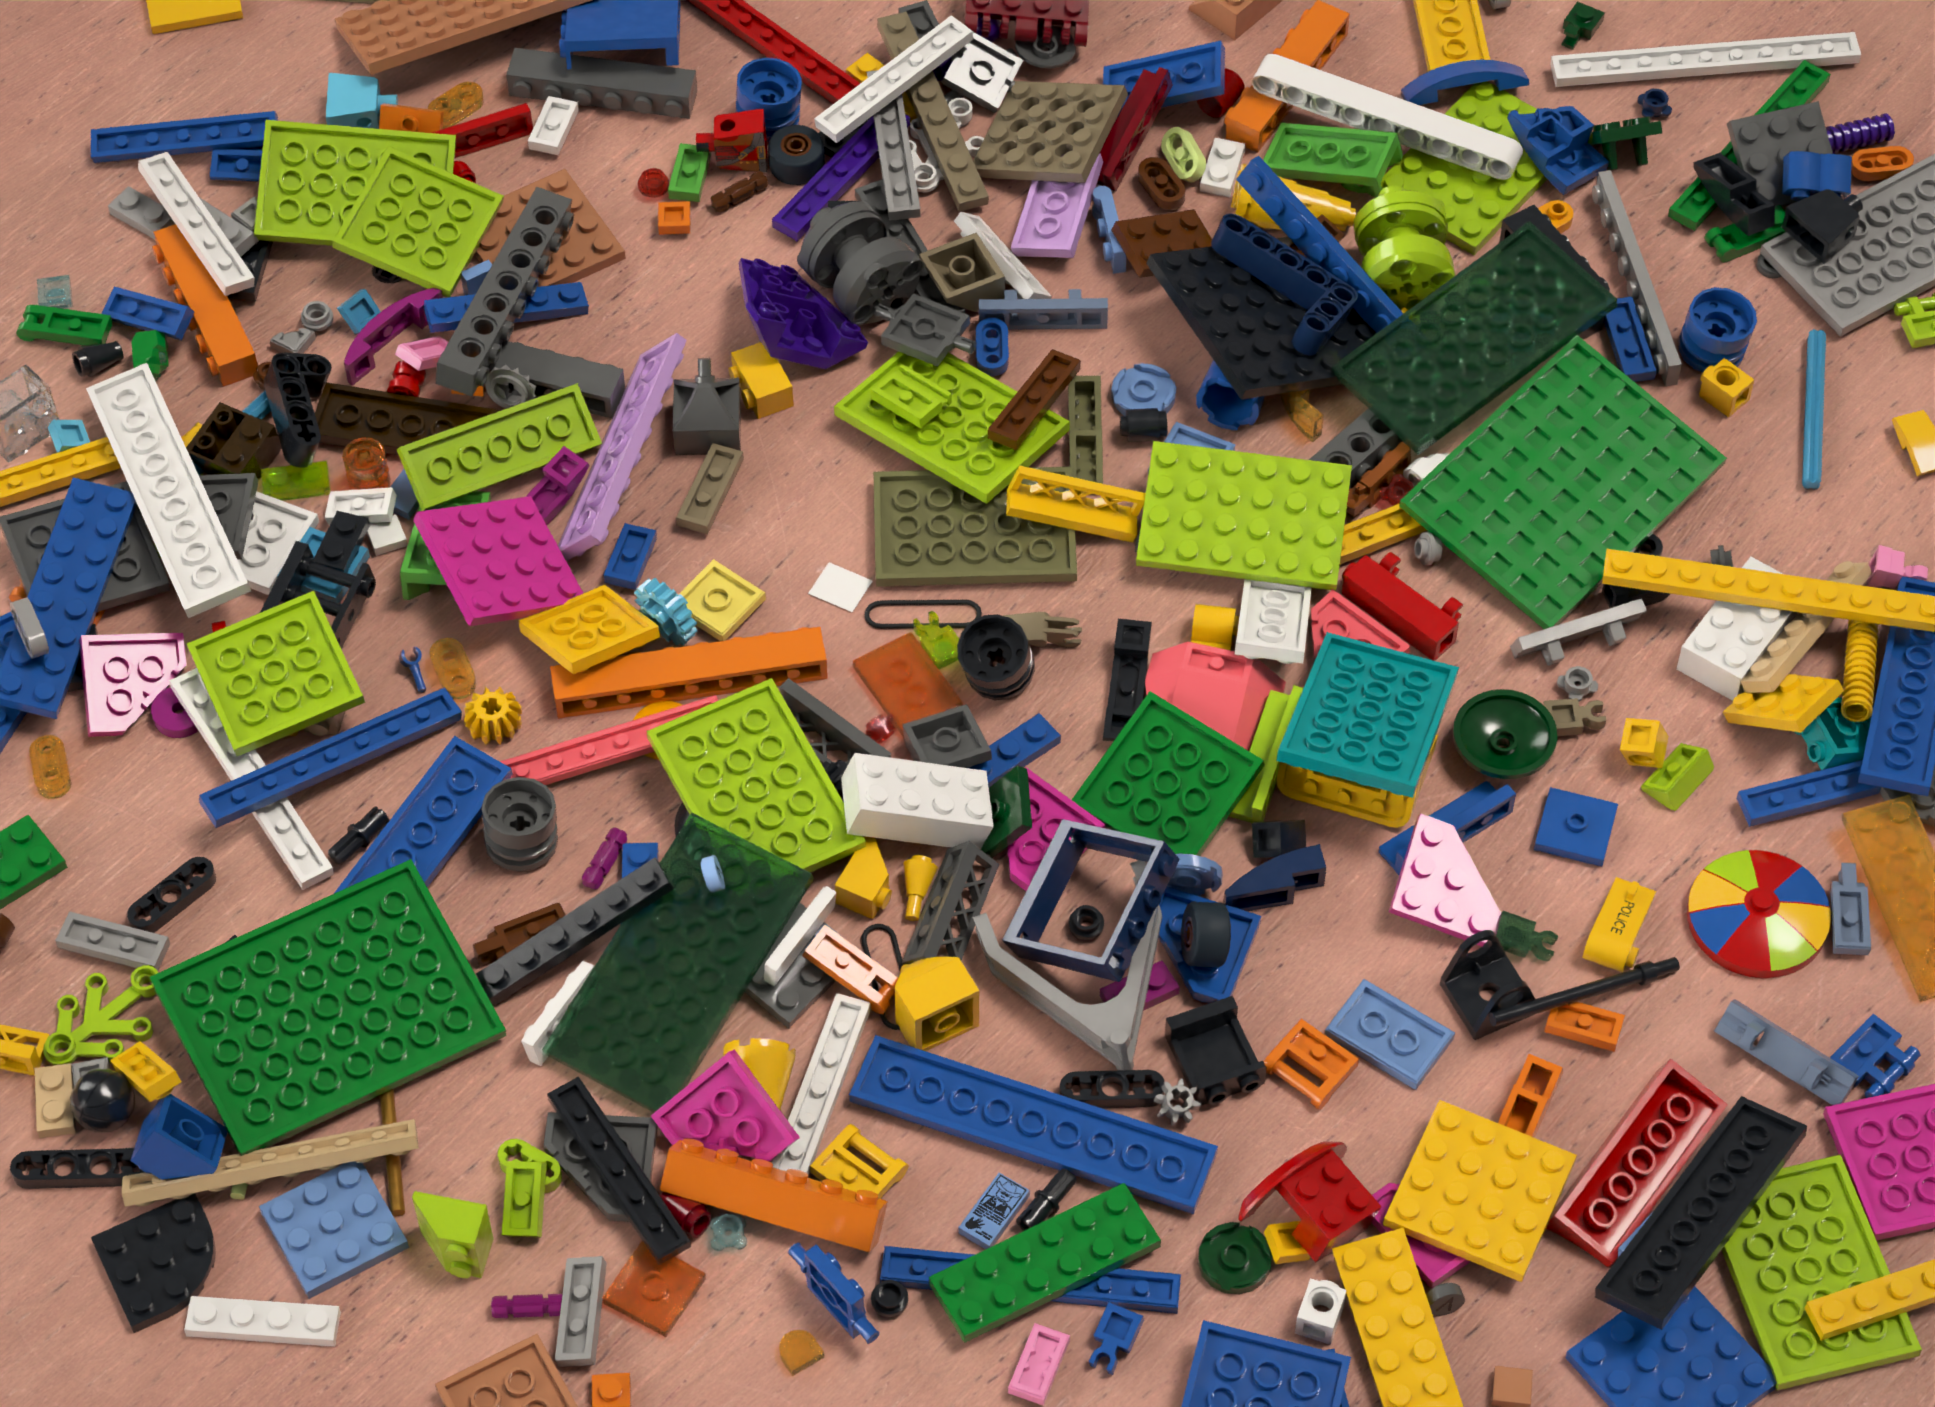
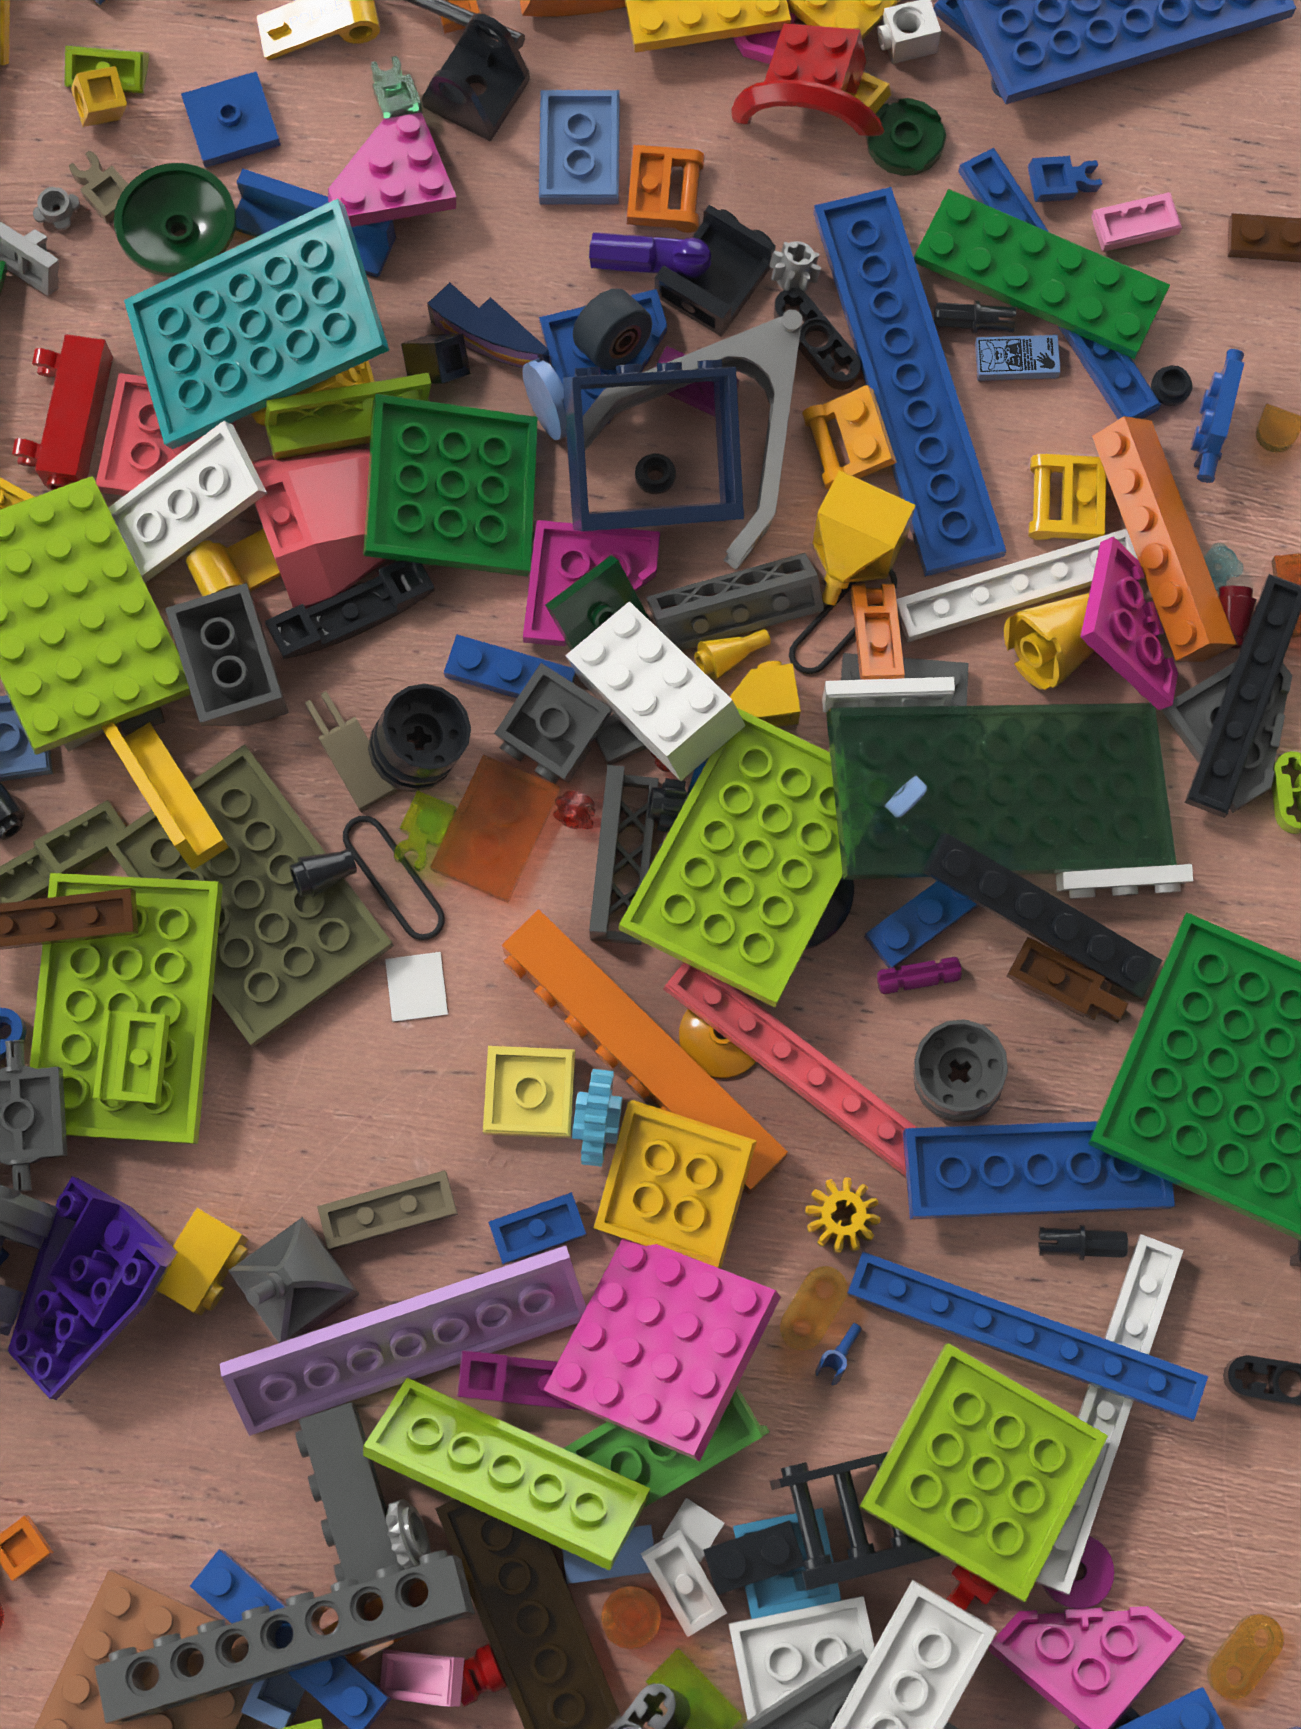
camera: 125 degrees left, 20 degrees up
(951, 556) = (321, 871): none -> black cone
(1014, 1062) = (861, 432): none -> light orange plate
(1141, 588) = (227, 659): none -> dark grey slope
(1260, 1011) = (648, 254): none -> dark purple piece

